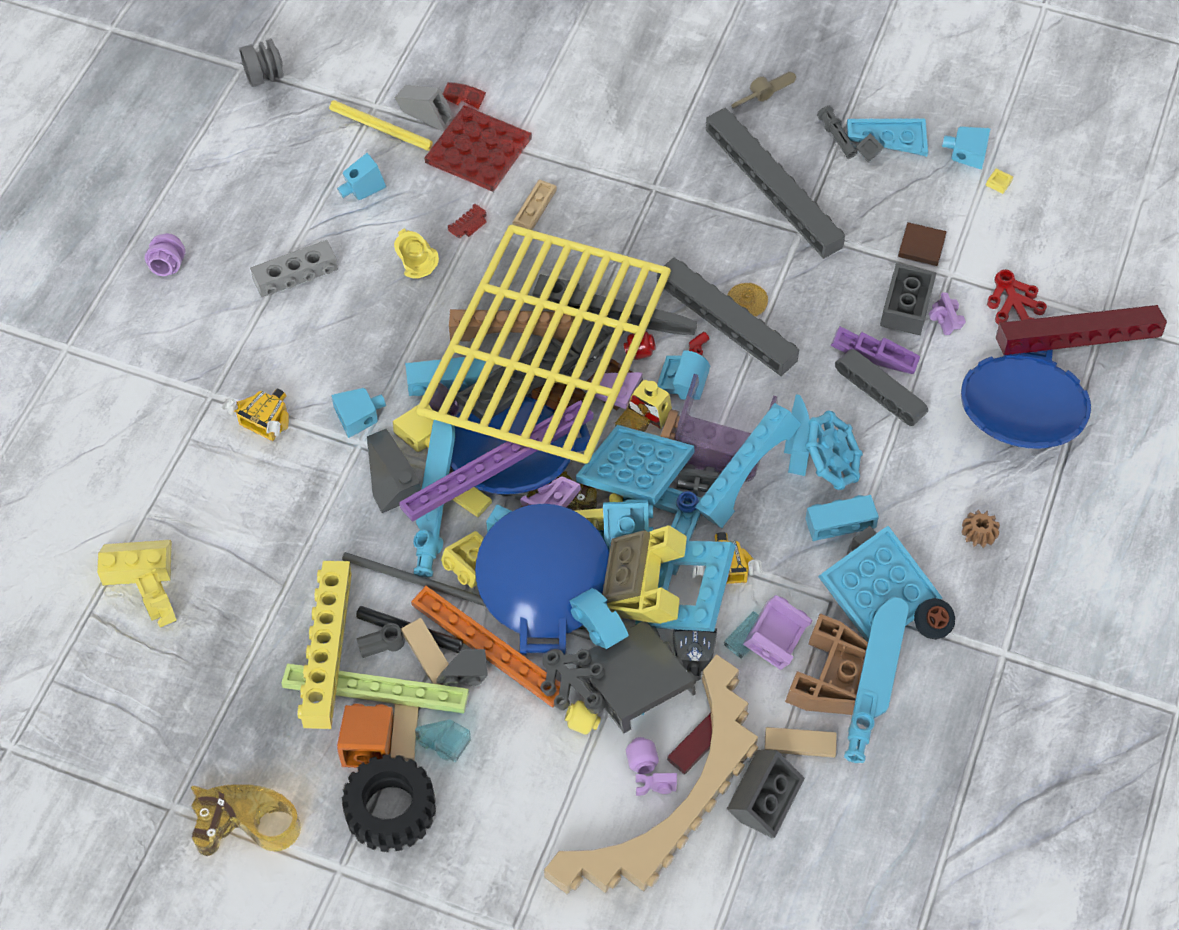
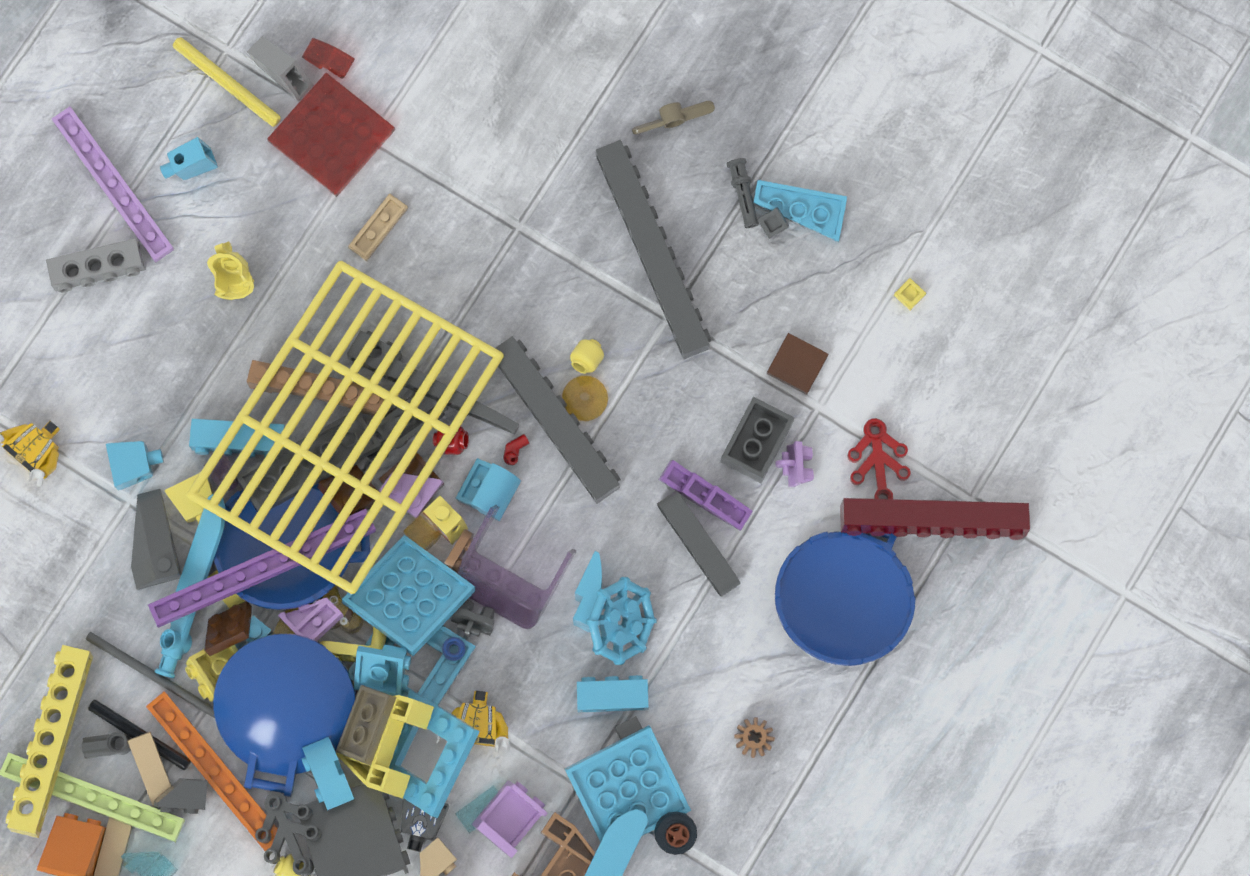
camera: 10 degrees right, 20 degrees up
(298, 210) = (112, 184): none -> lavender plate
(471, 522) = (228, 628): none -> reddish brown plate
(472, 224) = (303, 239): clear red piece -> none
(719, 500) = (557, 594): medium azure arch -> none
(741, 265) = (586, 356): none -> light yellow head
(968, 145) = (887, 242): medium azure torso -> none

